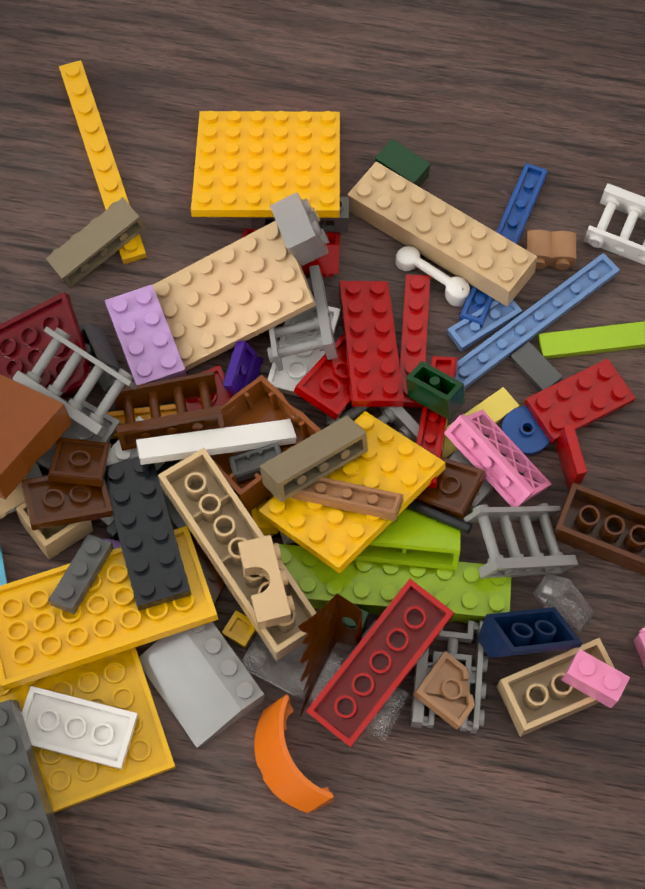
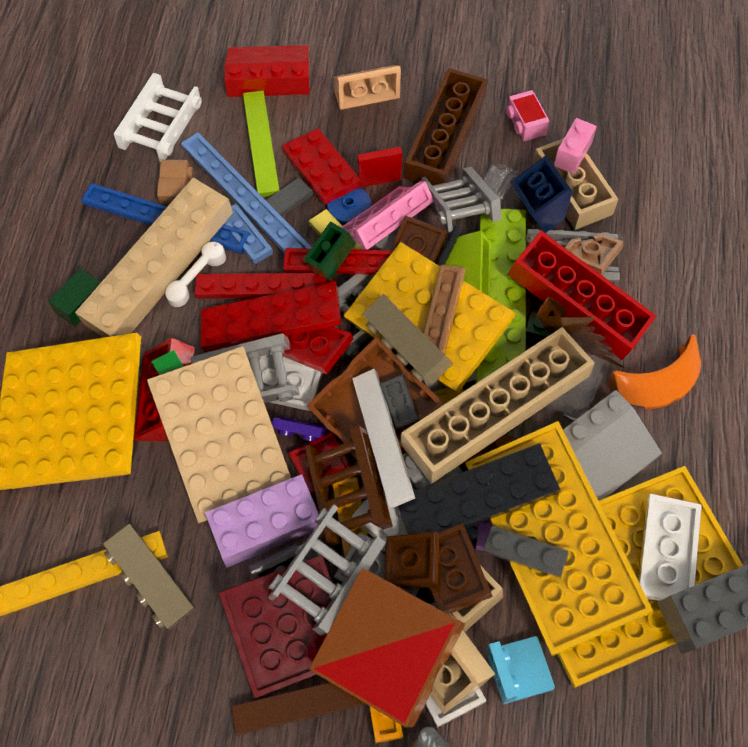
camera: 90 degrees left, 5 degrees down
(239, 629) = (551, 415): yellow plate -> none
(260, 558) = (555, 360): tan arch -> none
(300, 228) = (166, 351): light grey brick -> none

